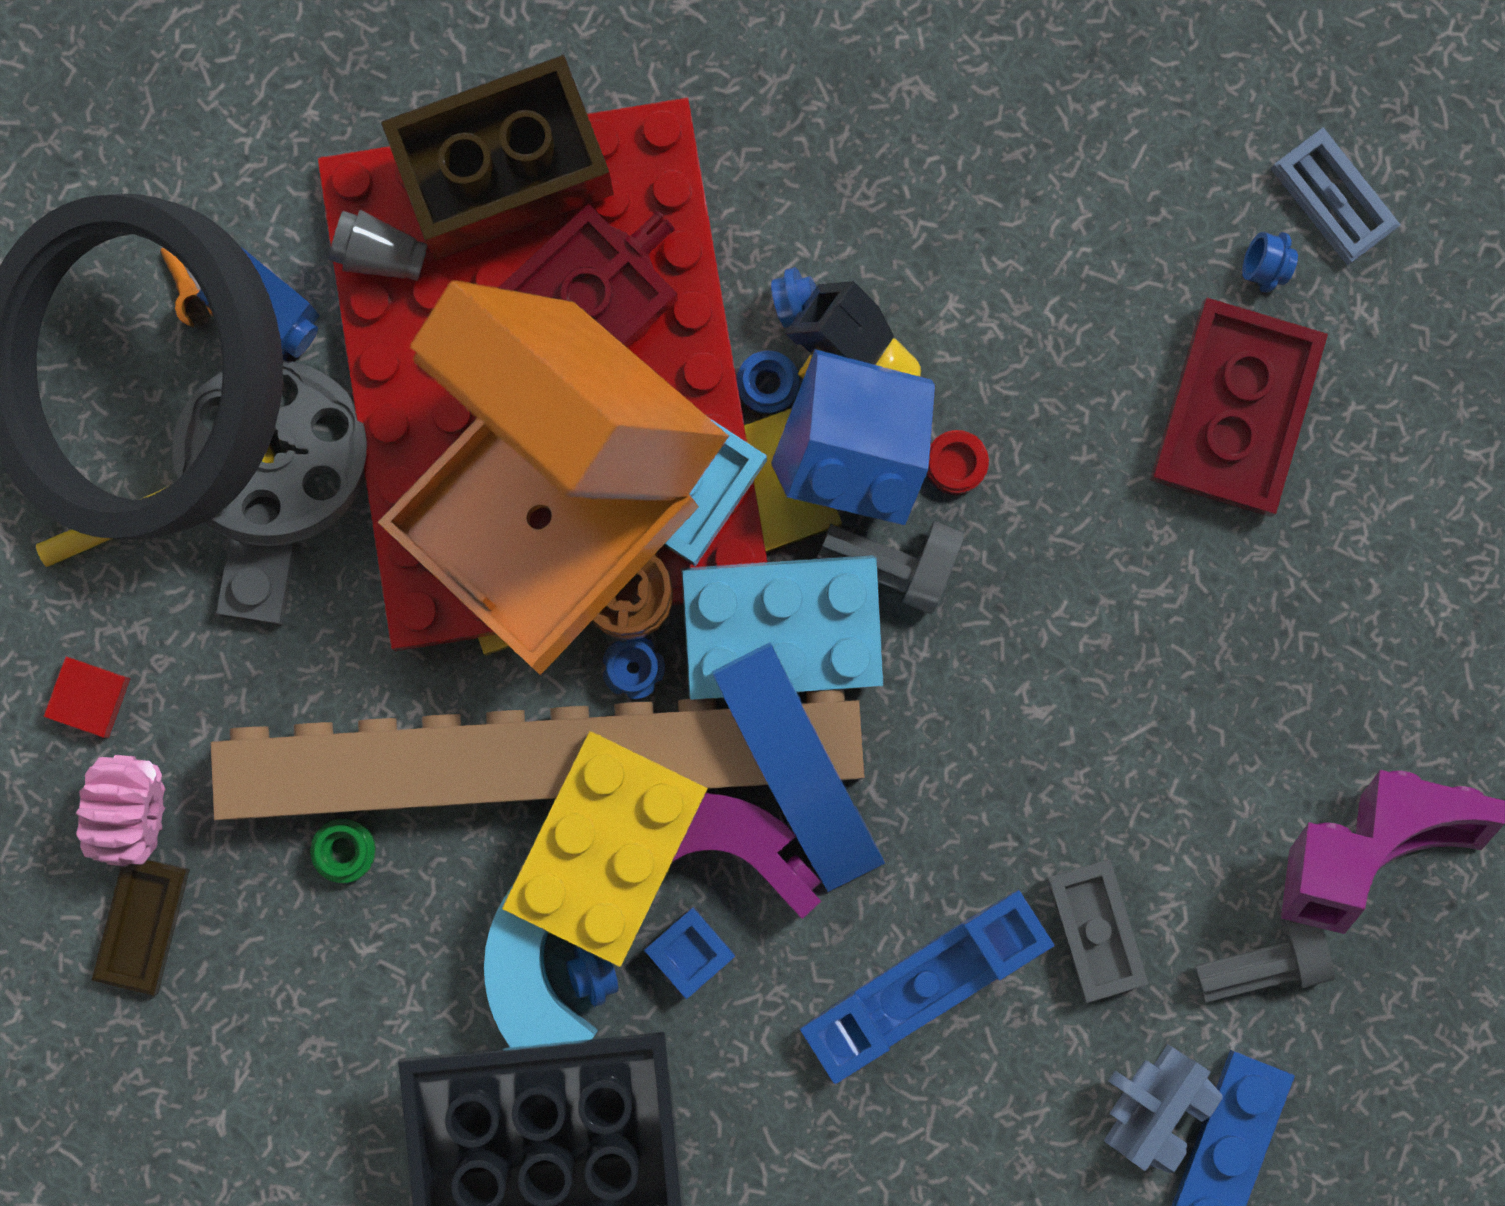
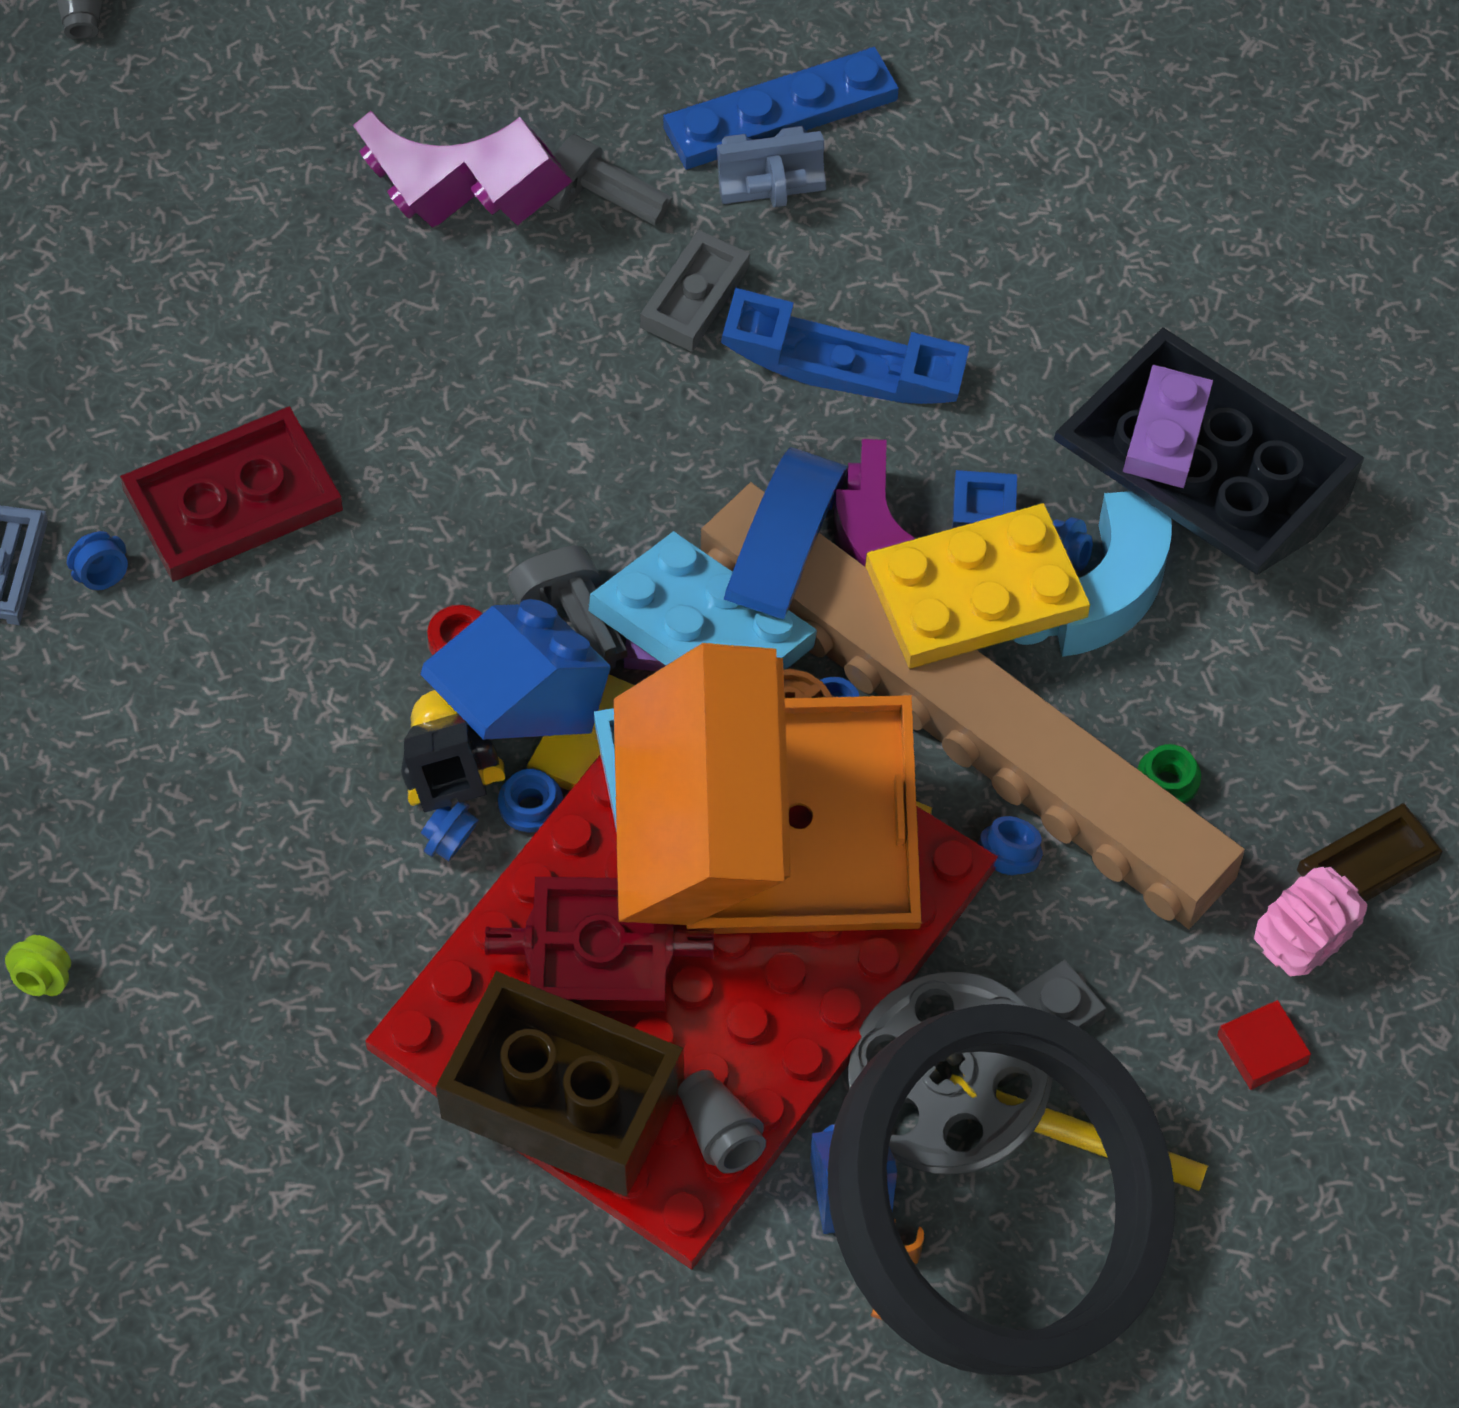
camera: 135 degrees left, 25 degrees down
(397, 675) = (1014, 843): none -> blue plate
(582, 1125) = (1167, 426): none -> medium lavender plate

